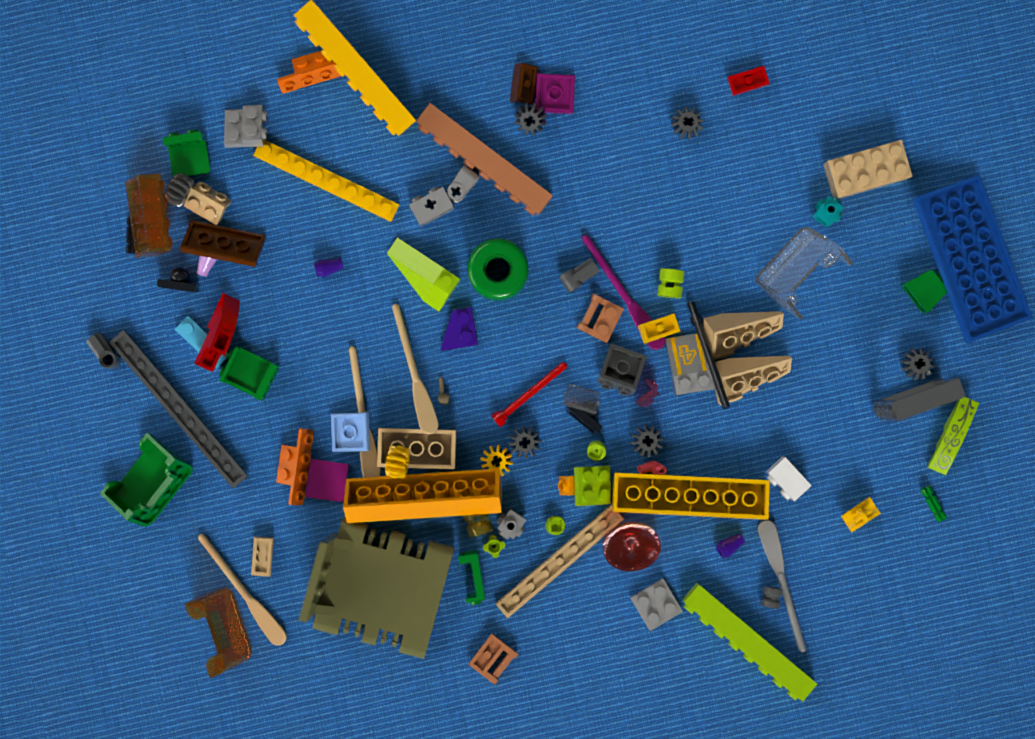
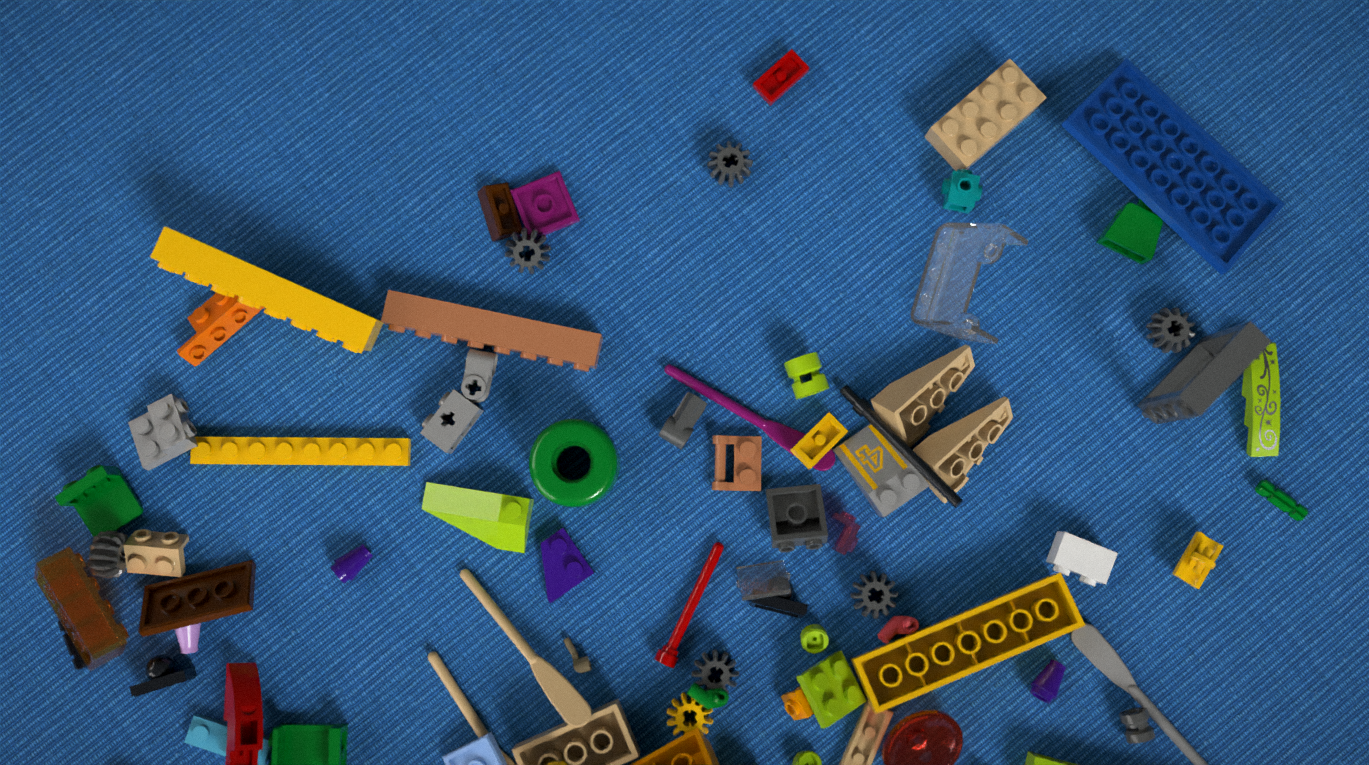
camera: 20 degrees left, 5 degrees down
(514, 454) = (708, 698): none -> green arm

